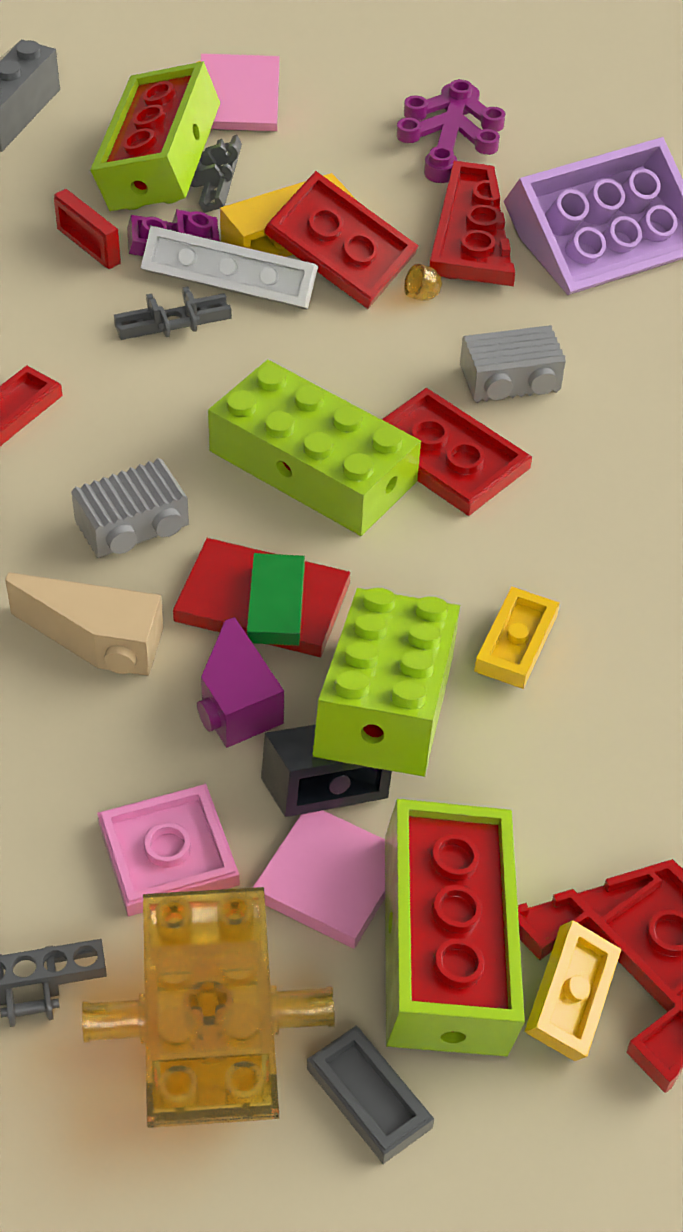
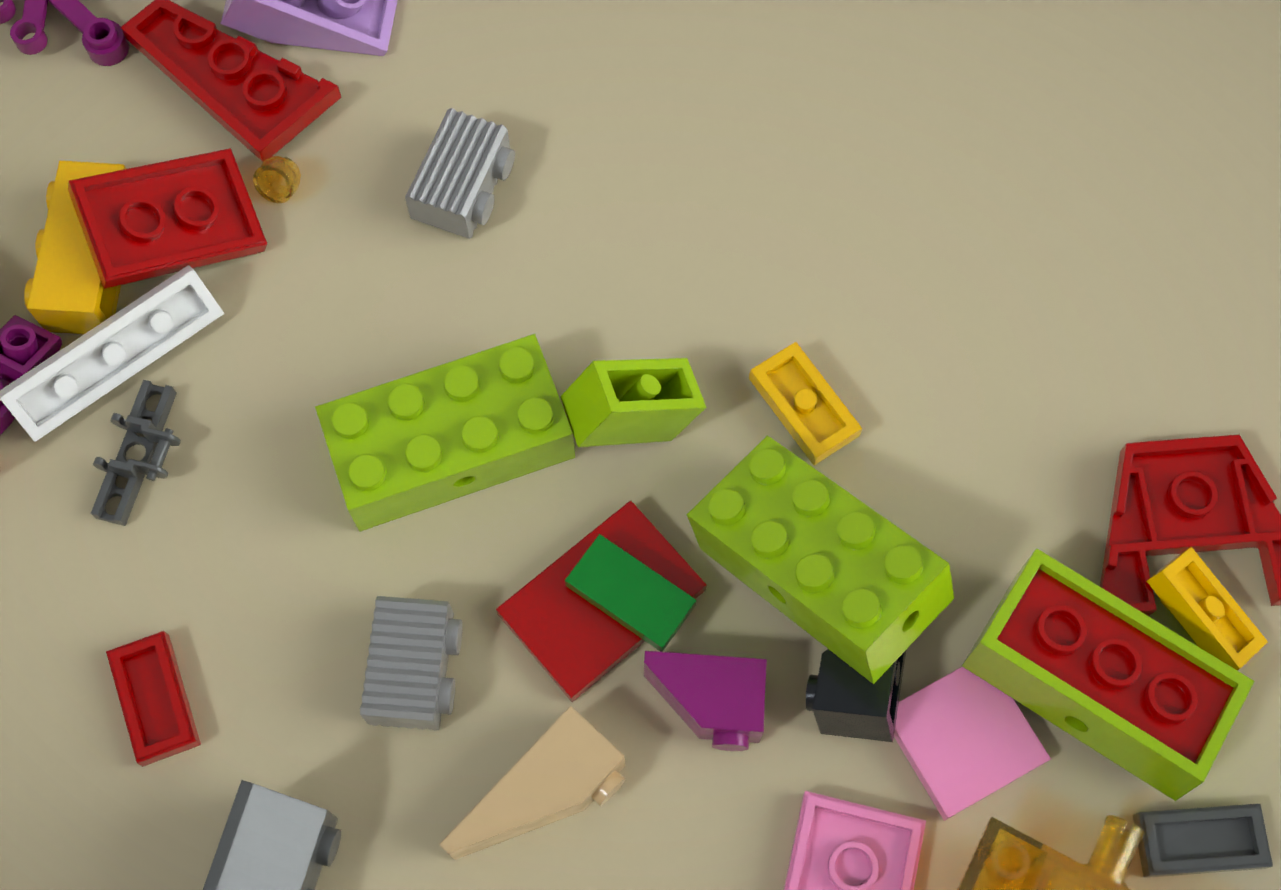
camera: 55 degrees left, 20 degrees up
(418, 519) = (632, 401): none -> lime brick
(458, 453) = (525, 294): red tile -> none

